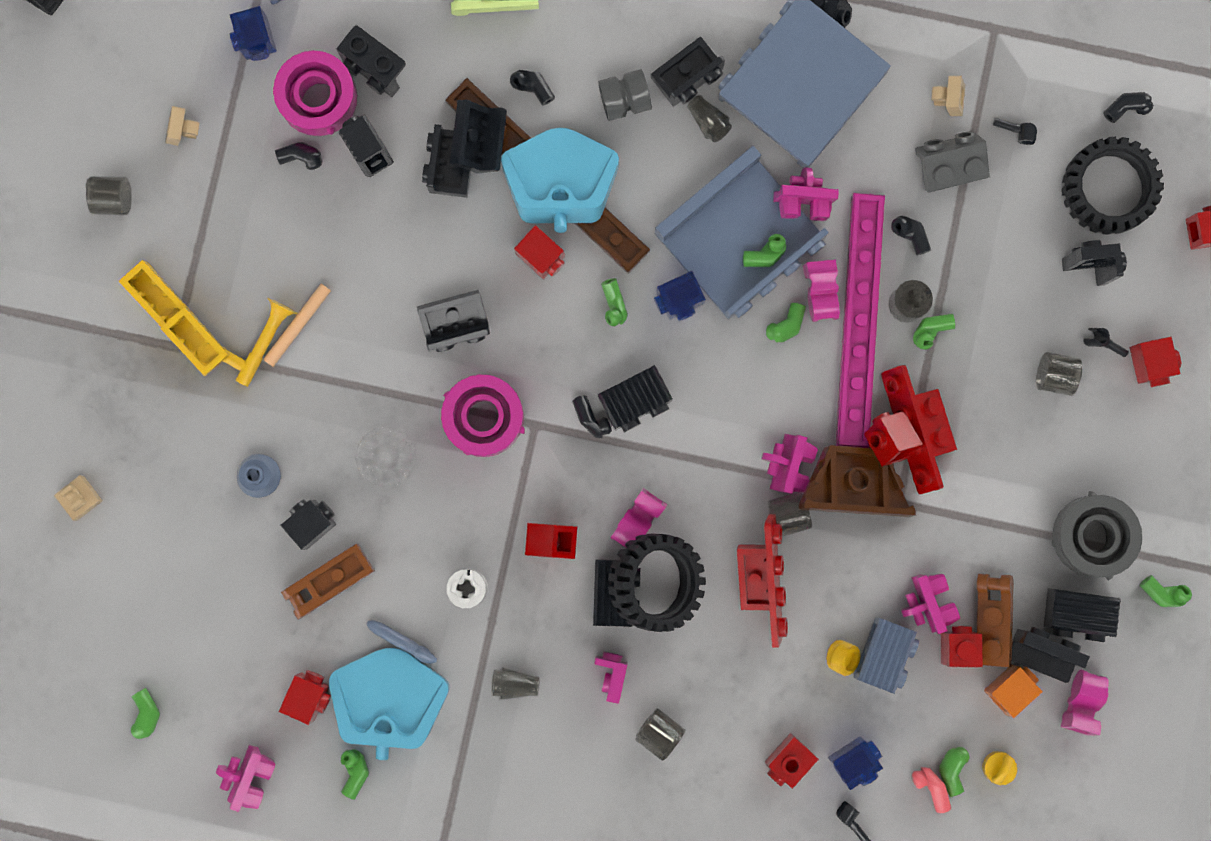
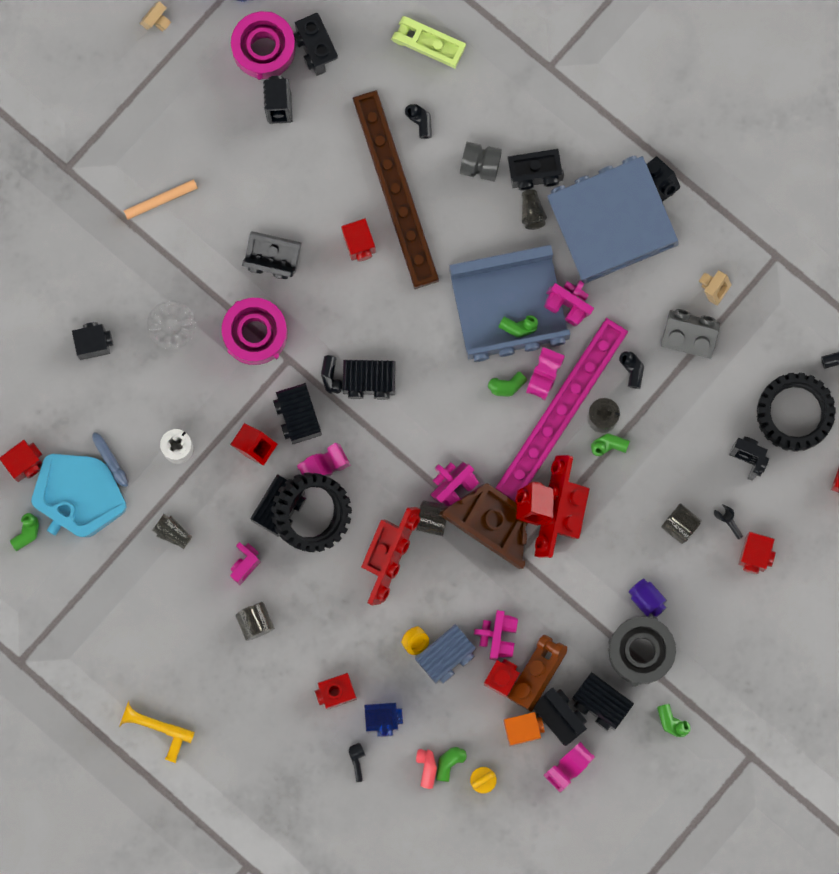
camera: 30 degrees right, 5 degrees down
(108, 195) = (80, 39): clear smoke piece -> none
(174, 317) = (78, 148): yellow slope -> none
(250, 365) = (110, 210): yellow piece -> none
(262, 484) = (76, 295): sand blue cone -> none
(302, 152) = (230, 79): black arm -> none
(328, 580) = (82, 389): dark orange plate -> none
(439, 174) = (330, 142): black bracket -> none
(478, 137) = (359, 135): black bracket -> none
(560, 178) = (403, 195): medium azure animal -> none
(579, 480) = (298, 414): none -> black brick
(617, 312) = (394, 300): bright green arm -> none
(679, 297) = (440, 324): clear blue brick -> none
(1026, 131) = (756, 341): black hand -> none
(1067, 474) = (648, 598): none -> dark purple brick

